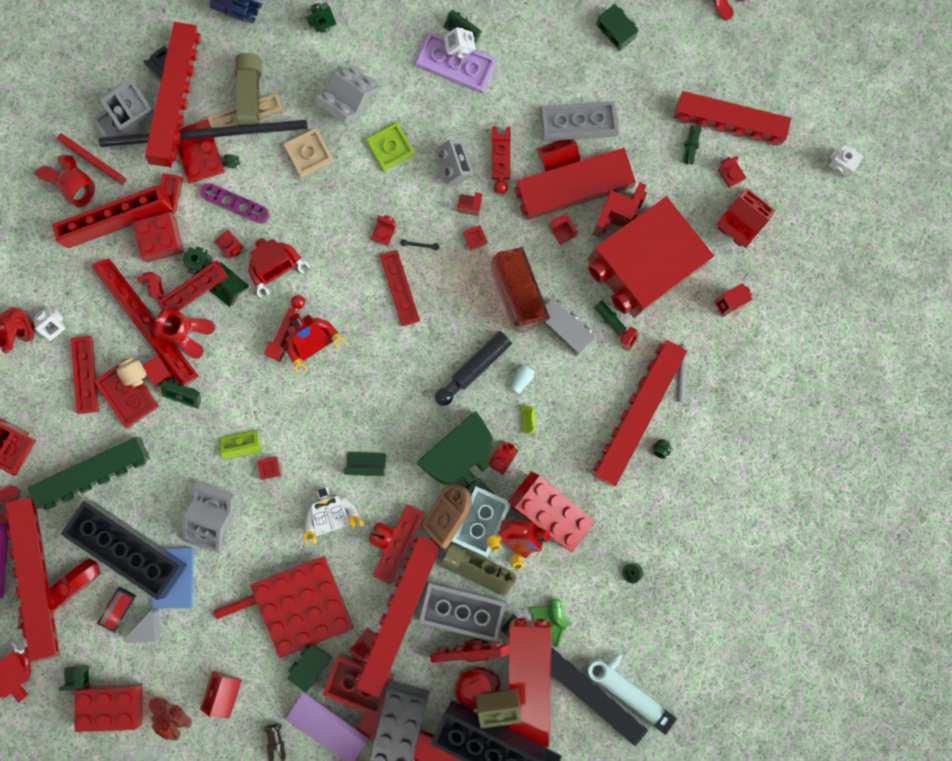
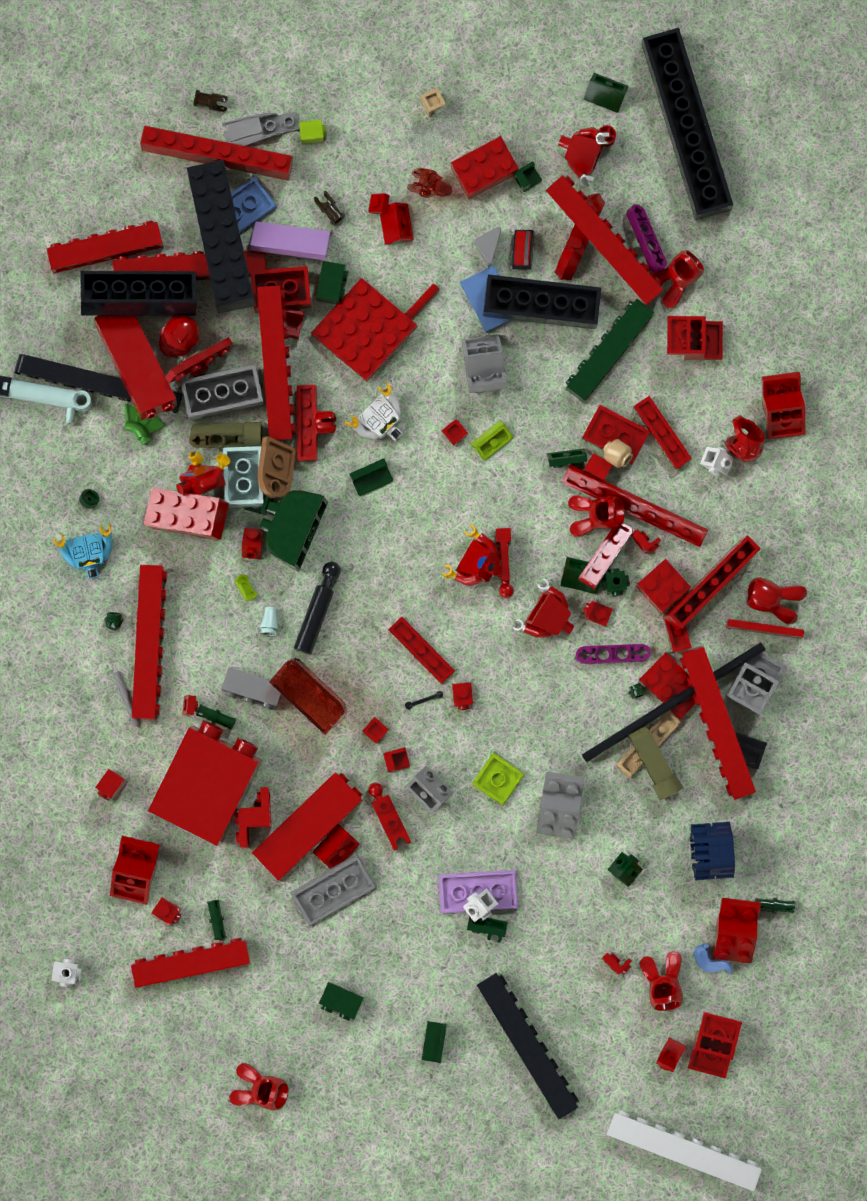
camera: 155 degrees right, 0 degrees up
(226, 723) = (379, 203): none -> red plate
(309, 152) = (569, 734): tan plate -> none
(499, 708) = (152, 327): olive panel -> none
(563, 228) = (298, 778): red panel -> none
(658, 524) = (87, 550): none -> medium azure torso

